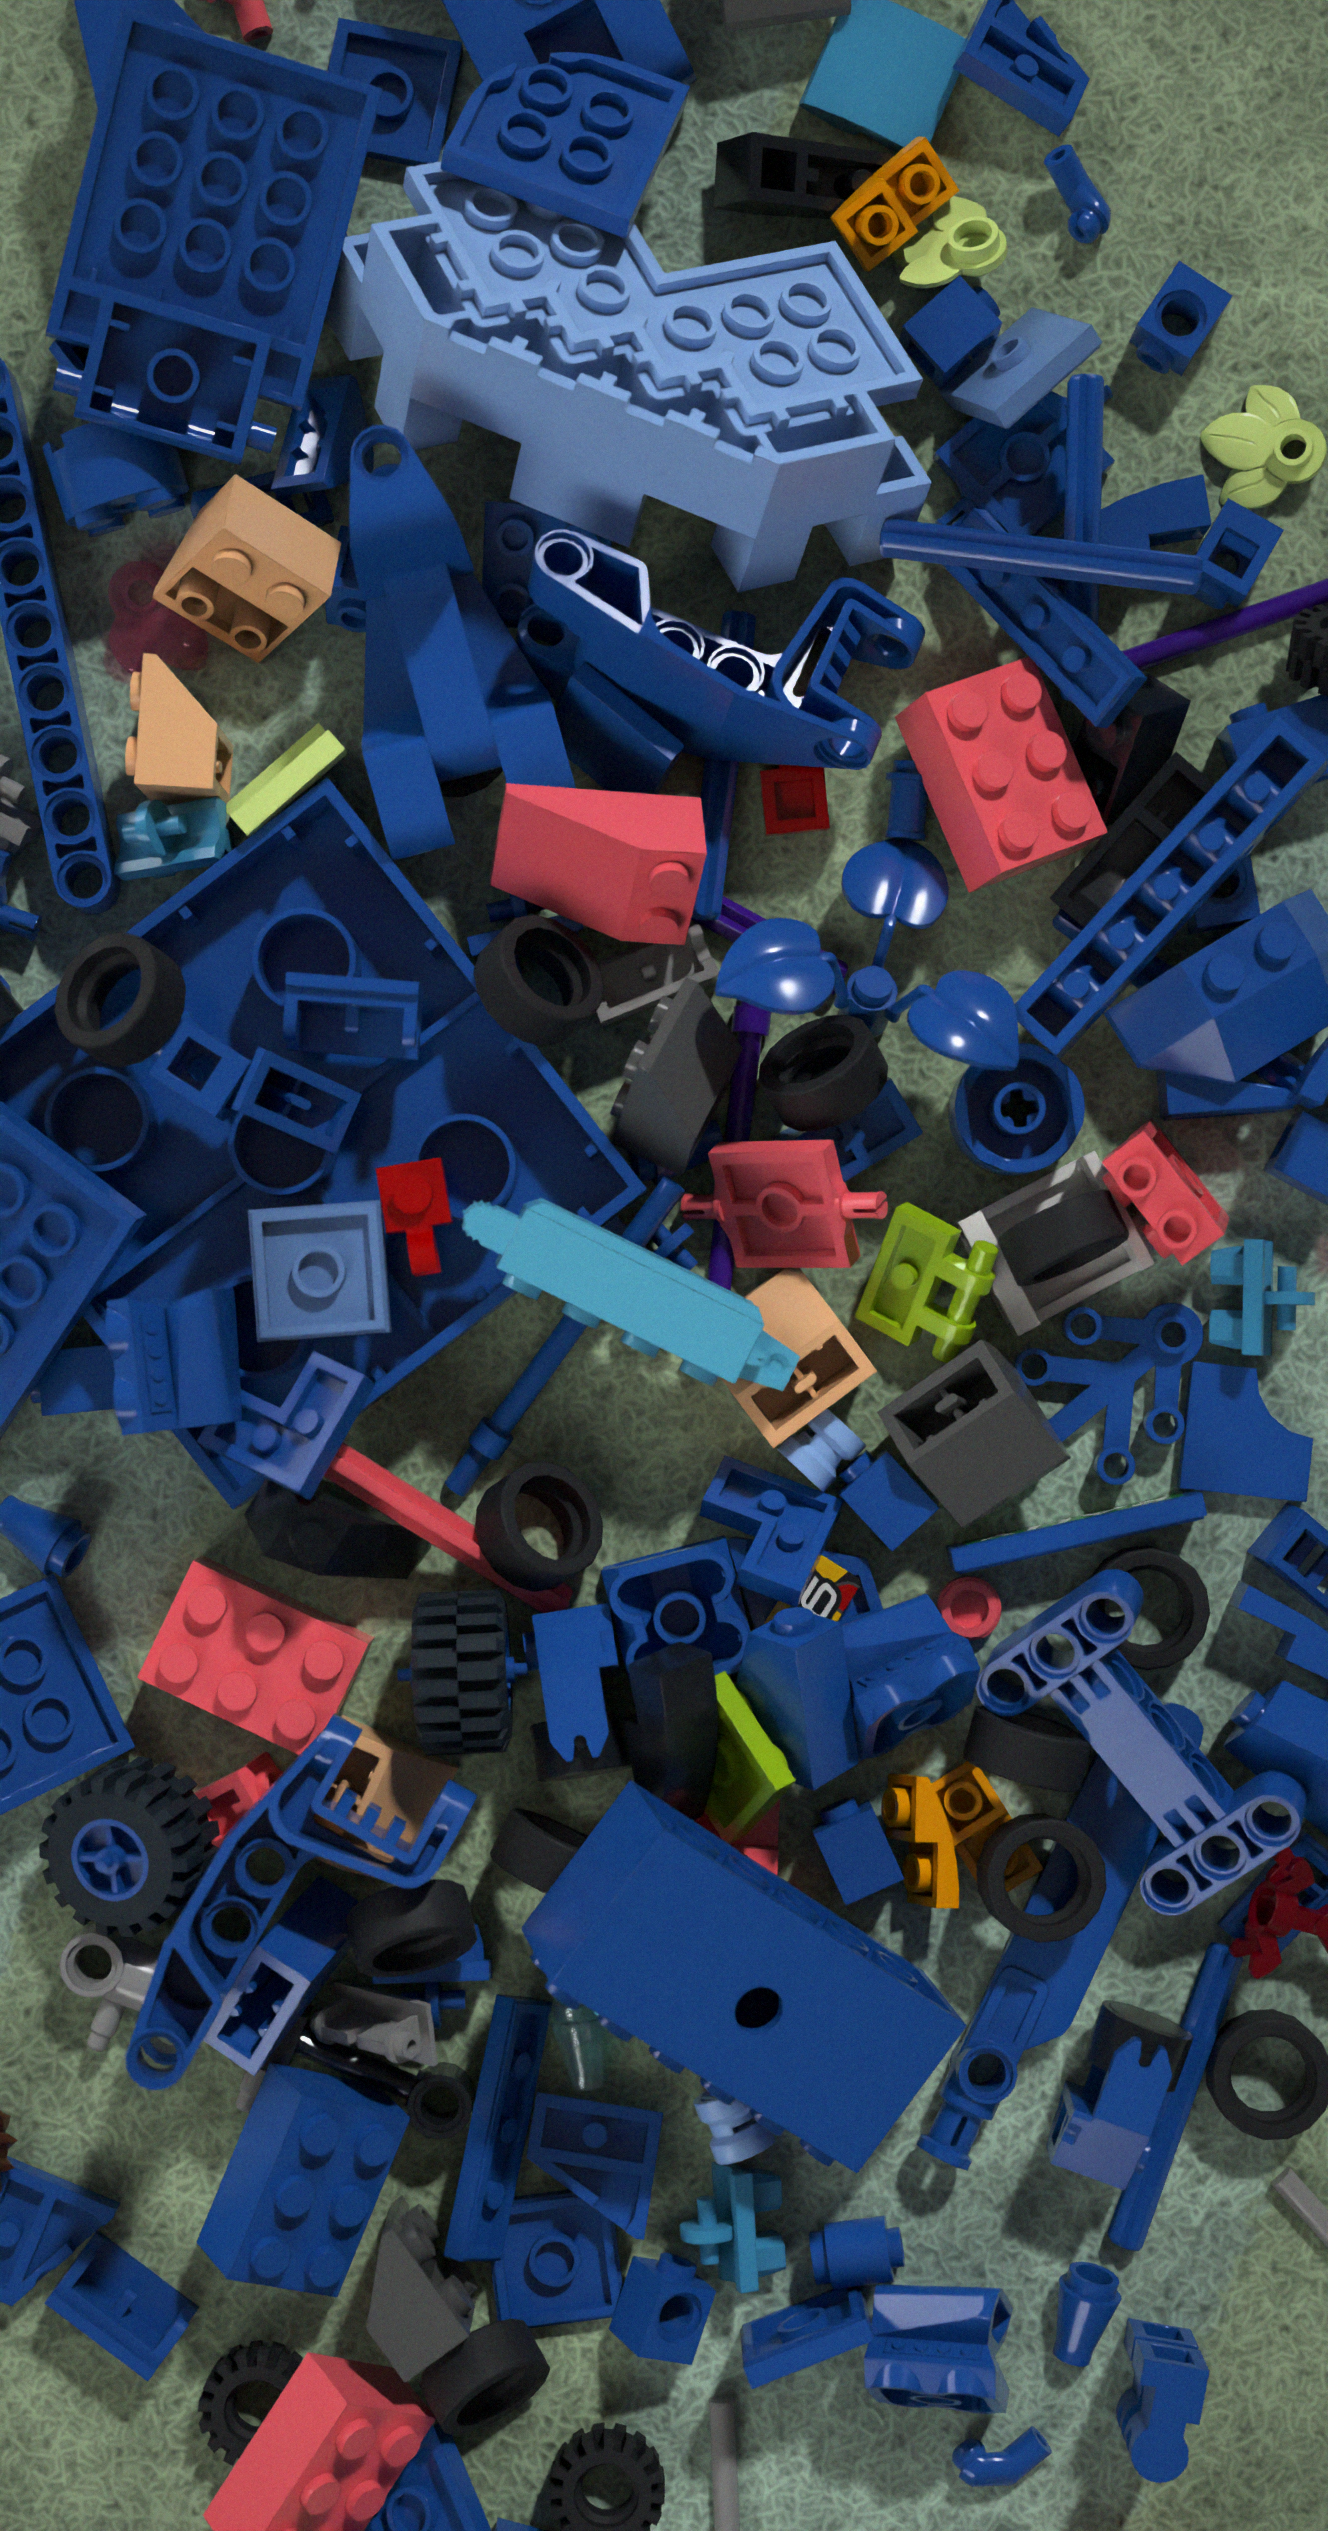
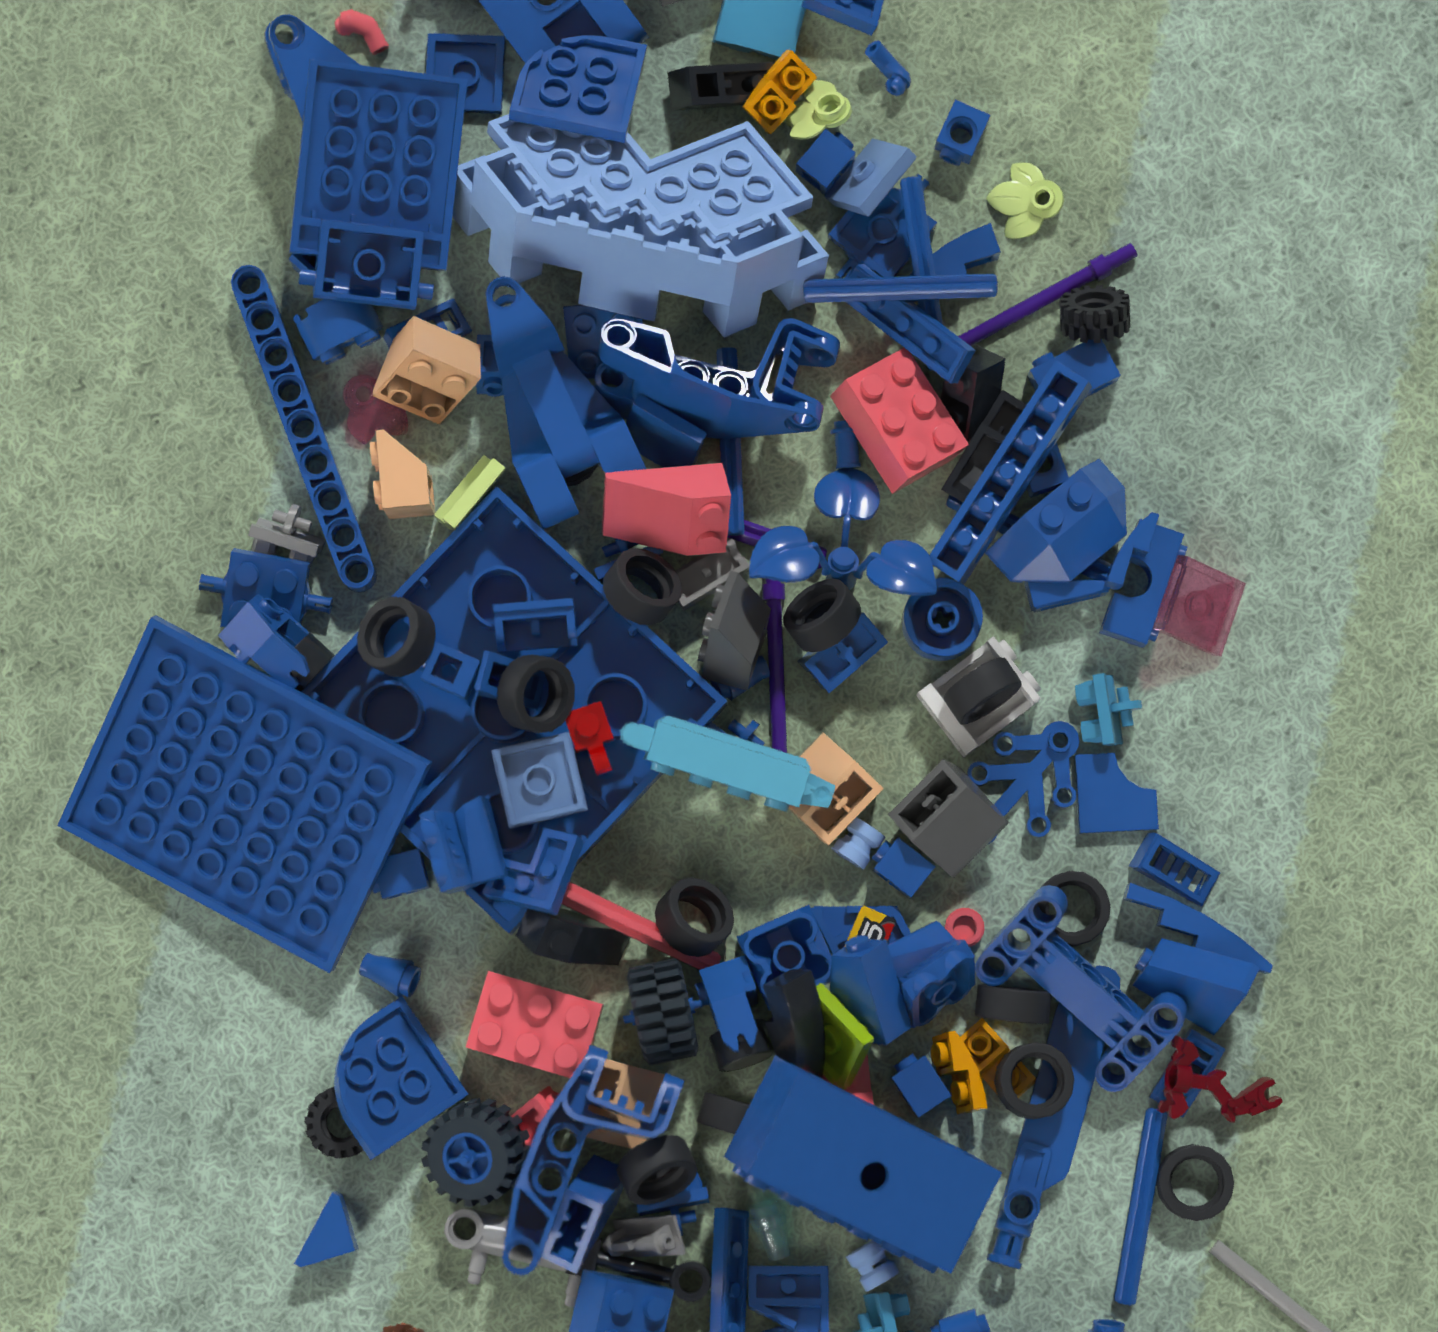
camera: 10 degrees left, 5 degrees down
(172, 838) = (406, 538): dark azure hips -> none
(296, 1111) = (560, 693): none -> black tyre
(321, 438) = (461, 286): blue slope -> none
(493, 1434) = (656, 868): blue bar -> none
(784, 1204) = (811, 698): coral plate -> none
(784, 1517) = (842, 888): blue plate -> none
(794, 800) = (777, 455): red plate -> none
(909, 1274) = (893, 732): lime plate -> none
(1076, 1531) = (1021, 869): blue tile -> none
(1109, 2121) = (1099, 1228): blue piece -> none
(1166, 1191) = (1040, 653): coral plate -> none
(1248, 541) = (1018, 254): blue brick -> none

